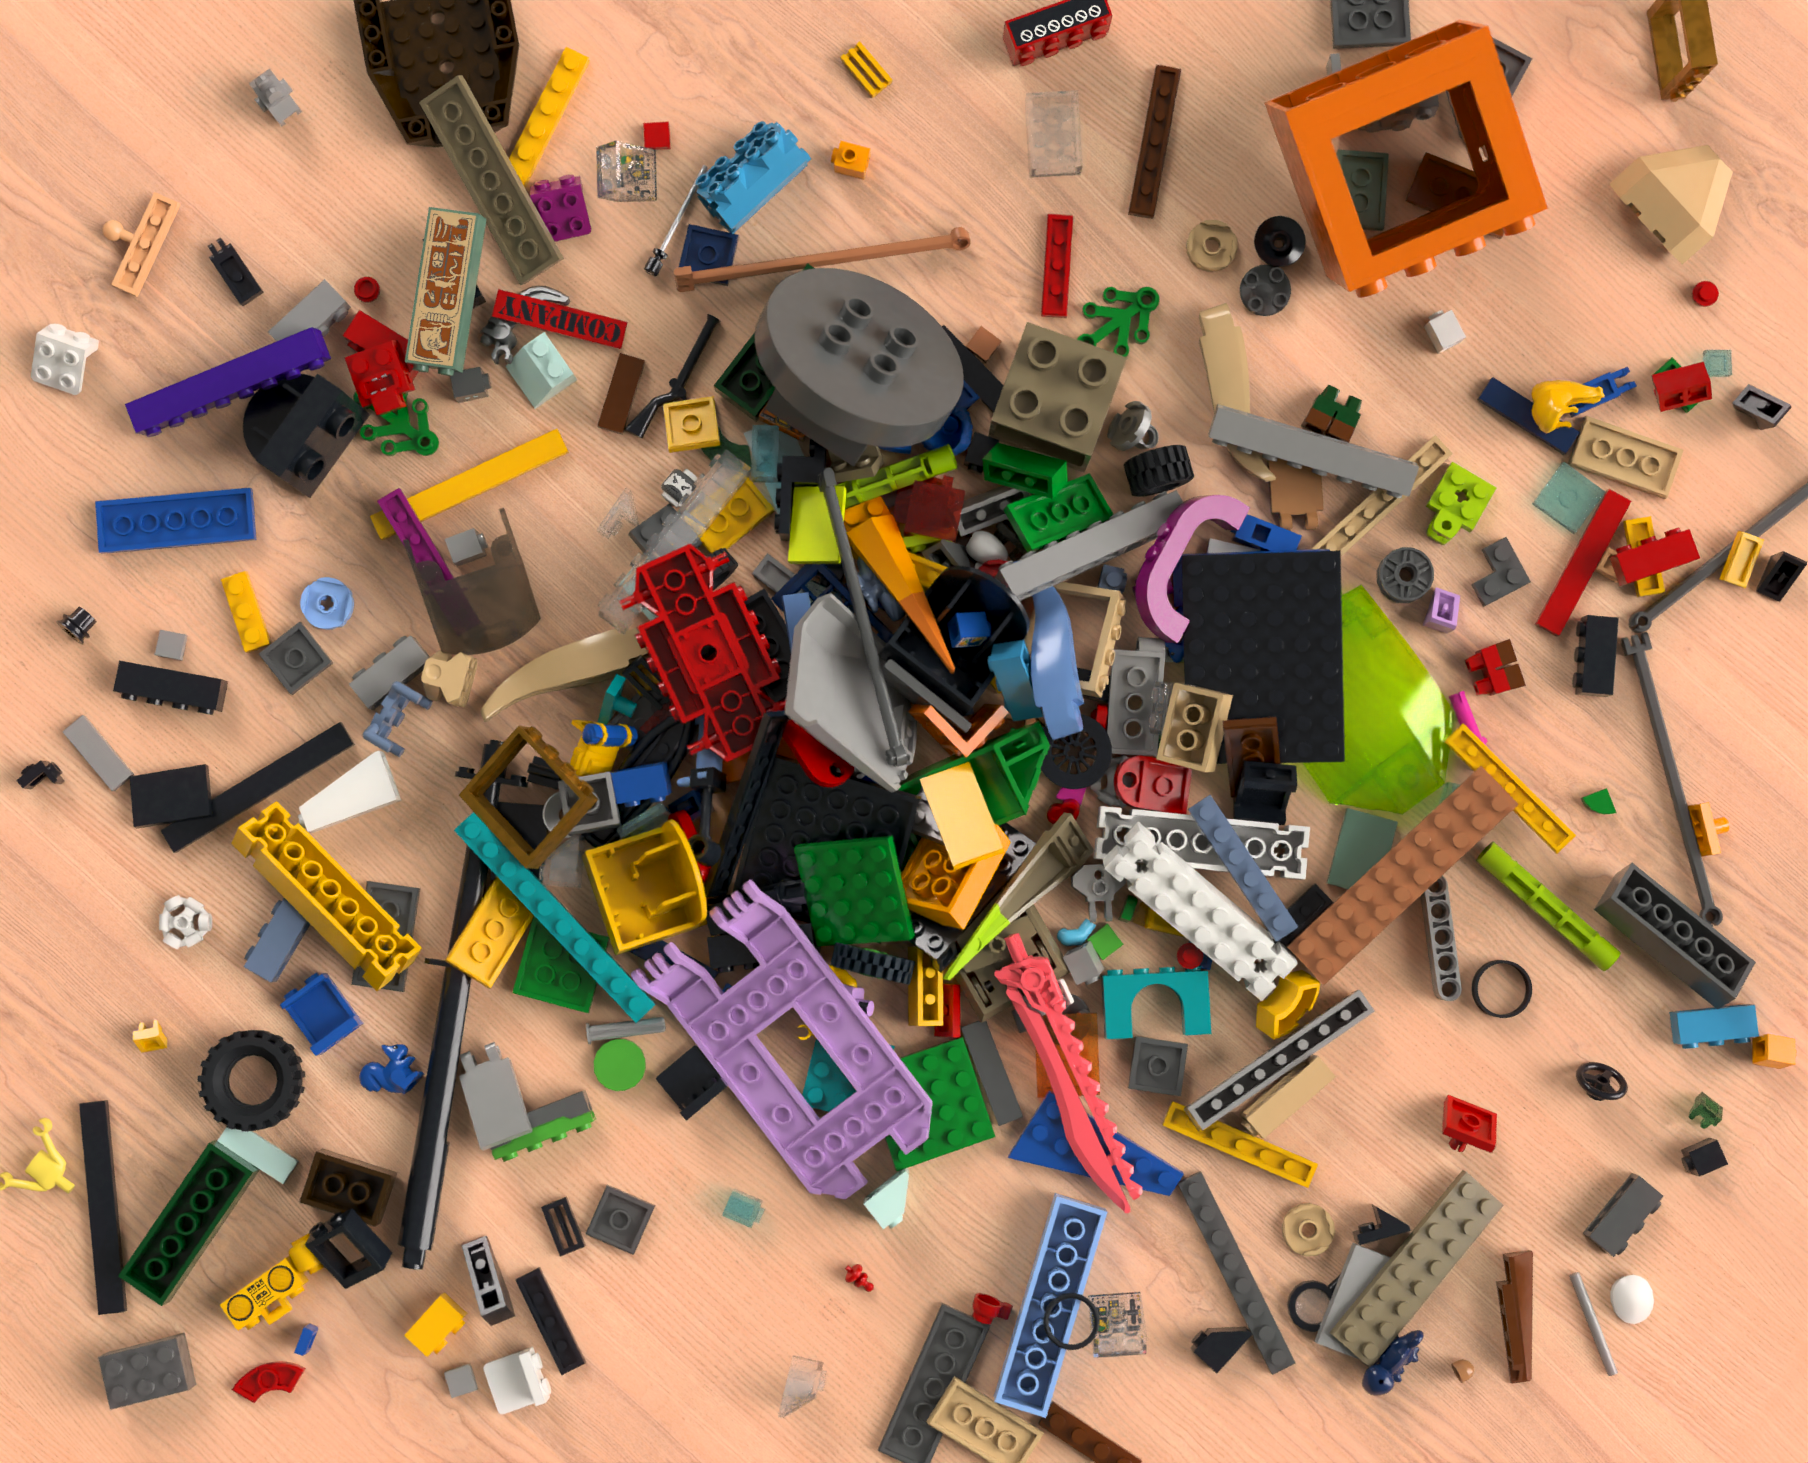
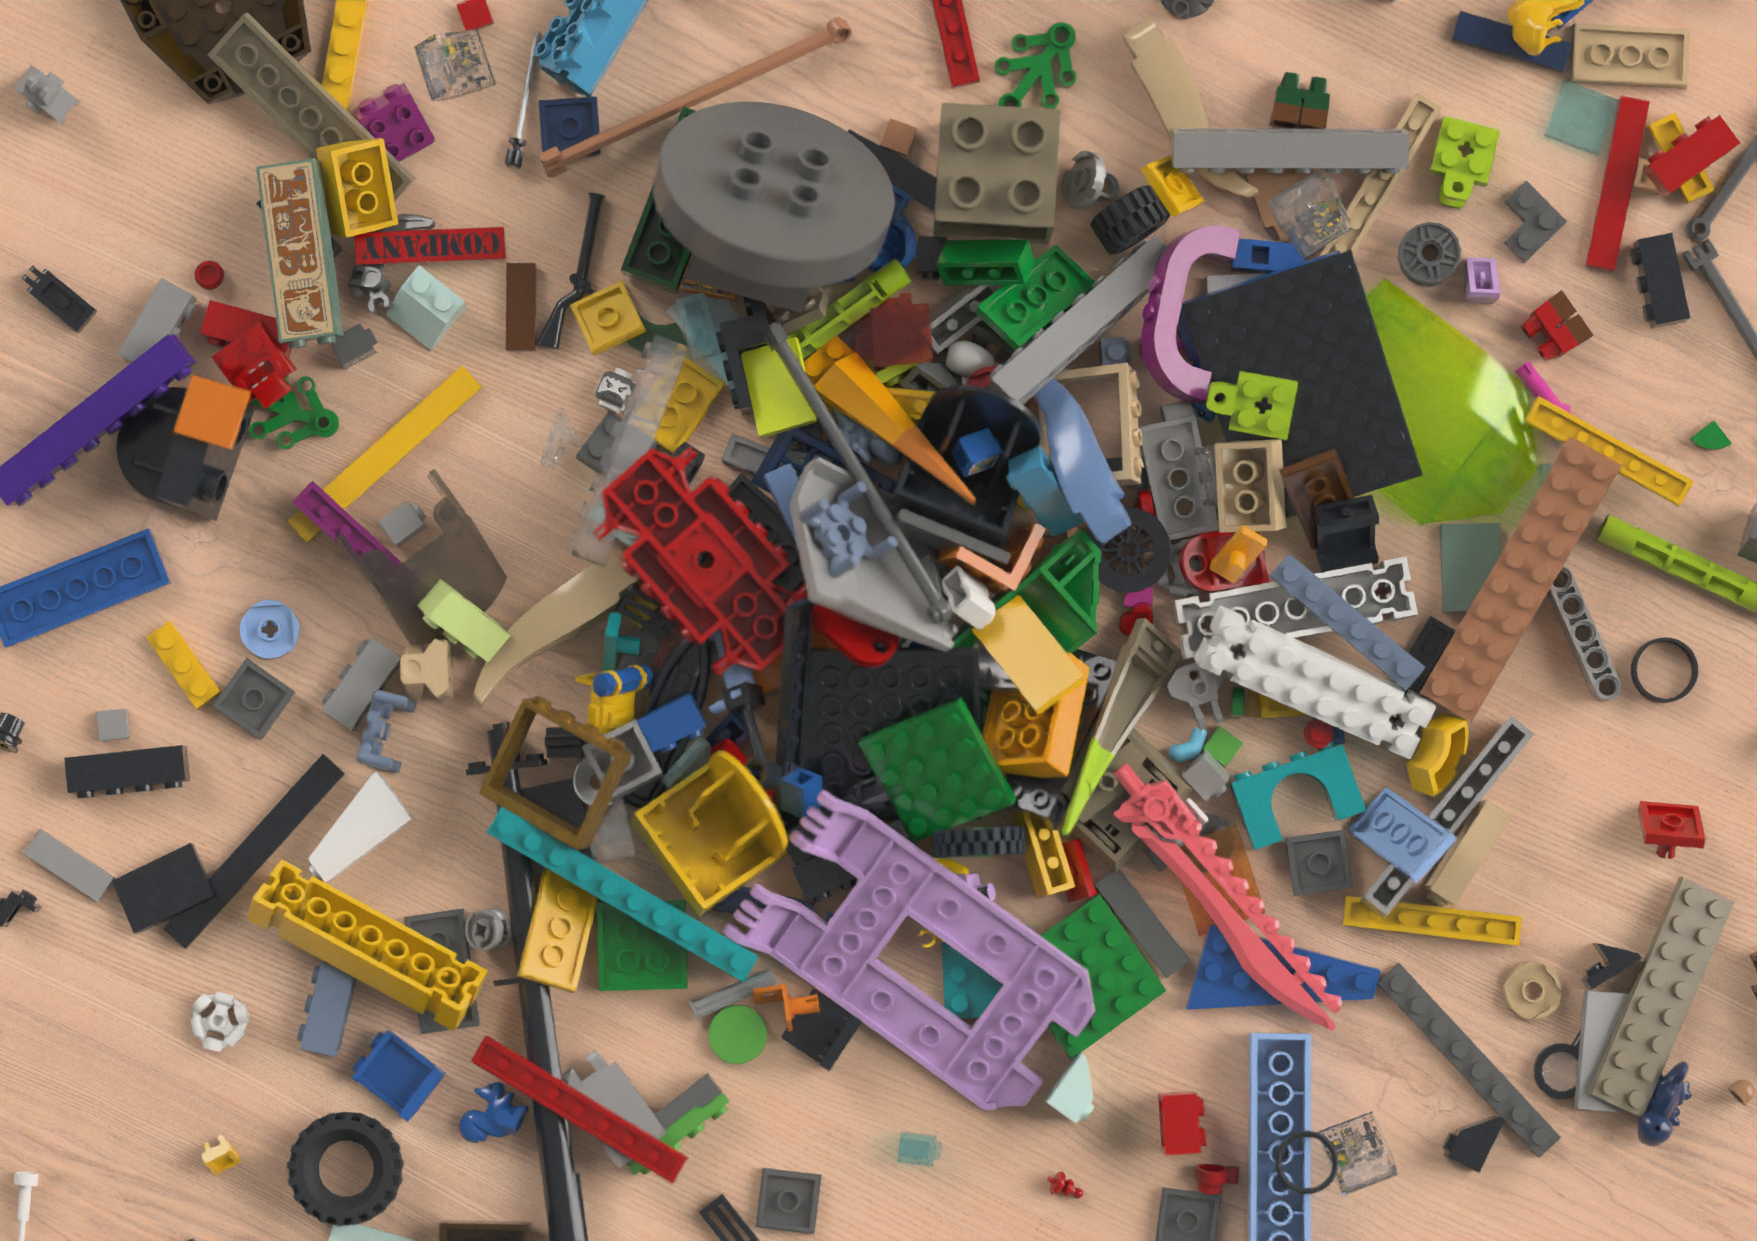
camera: 15 degrees left, 0 degrees up
(324, 402) = (212, 412): none -> orange tile
(431, 912) = (485, 929): none -> light grey wheel
(463, 1090) = (579, 1109): none -> red tile
(490, 644) = (463, 621): none -> yellowish green brick
(512, 250) = (357, 187): none -> yellow slope
(672, 1054) = (792, 1006): none -> orange bracket
(732, 874) = (800, 792): none -> blue brick
(821, 650) = (830, 520): none -> sand blue plate
(925, 752) = (968, 598): none -> white brick
(973, 1254) = (1180, 1123): none -> red brick
(1167, 782) = (1238, 554): none -> light orange tile
(1203, 453) = (1172, 187): none -> yellow tile
(1210, 649) = (1241, 400): none -> lime plate
(1236, 1064) = (1401, 834): none -> light blue tile
(1314, 510) = (1311, 213): none -> clear slope

